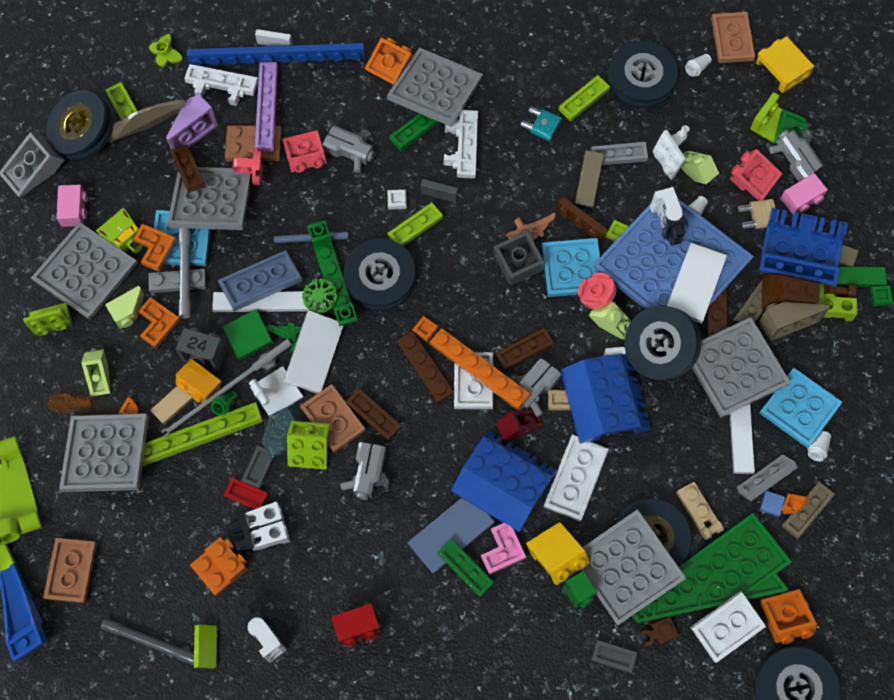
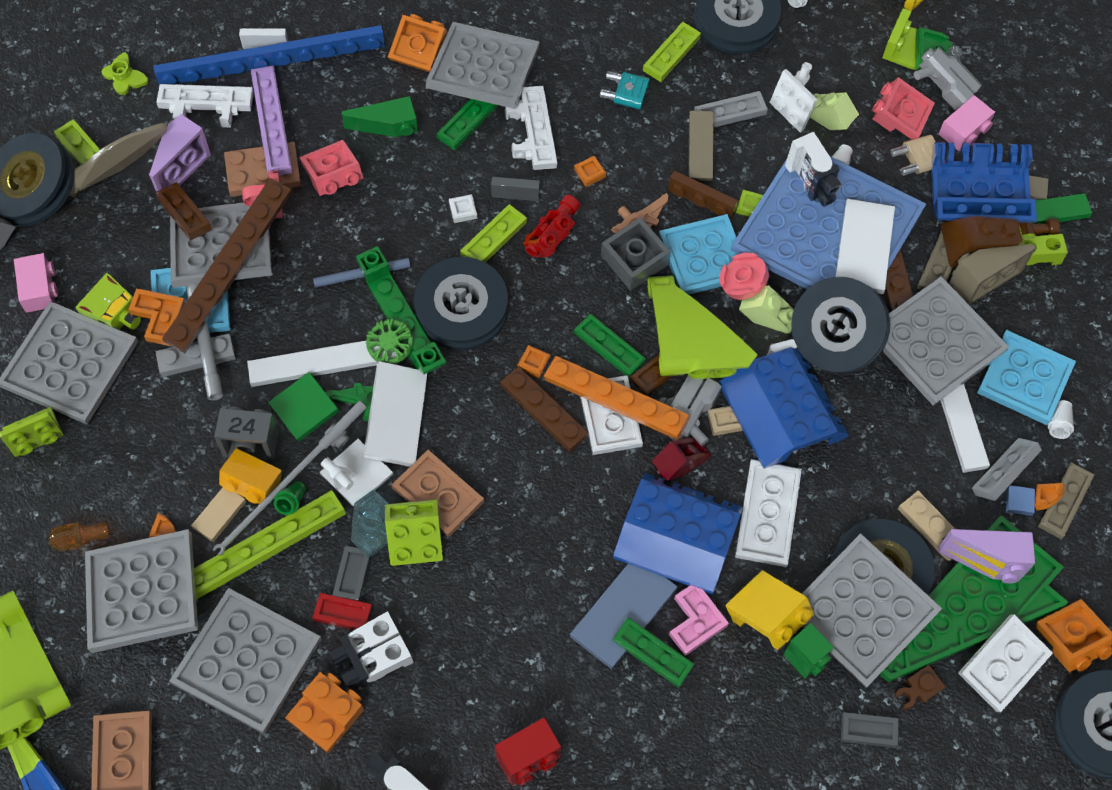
camera: 15 degrees left, 5 degrees down
(96, 372) = (109, 489): yellowish green slope -> none
(126, 307) = (134, 399): yellowish green slope -> none
(162, 322) = (185, 411): orange plate -> none
(170, 517) = (245, 660): none -> light grey plate
(210, 217) = (227, 265): none -> reddish brown plate
(260, 280) = (306, 336): sand blue tile -> none
(349, 145) = (389, 152): light grey piece -> none
(350, 117) = (386, 118): none -> green slope
(369, 471) = (501, 552): light grey piece -> none
(373, 414) = (490, 479): reddish brown plate -> none
(466, 227) = (549, 236): none -> red brick
(485, 326) = (609, 345): none -> green tile
(500, 185) = (590, 171): none -> orange tile
(545, 332) = (692, 337): none -> lime panel
(737, 543) = (992, 553): none -> lavender slope
(881, 295) = (1088, 228): green tile -> none

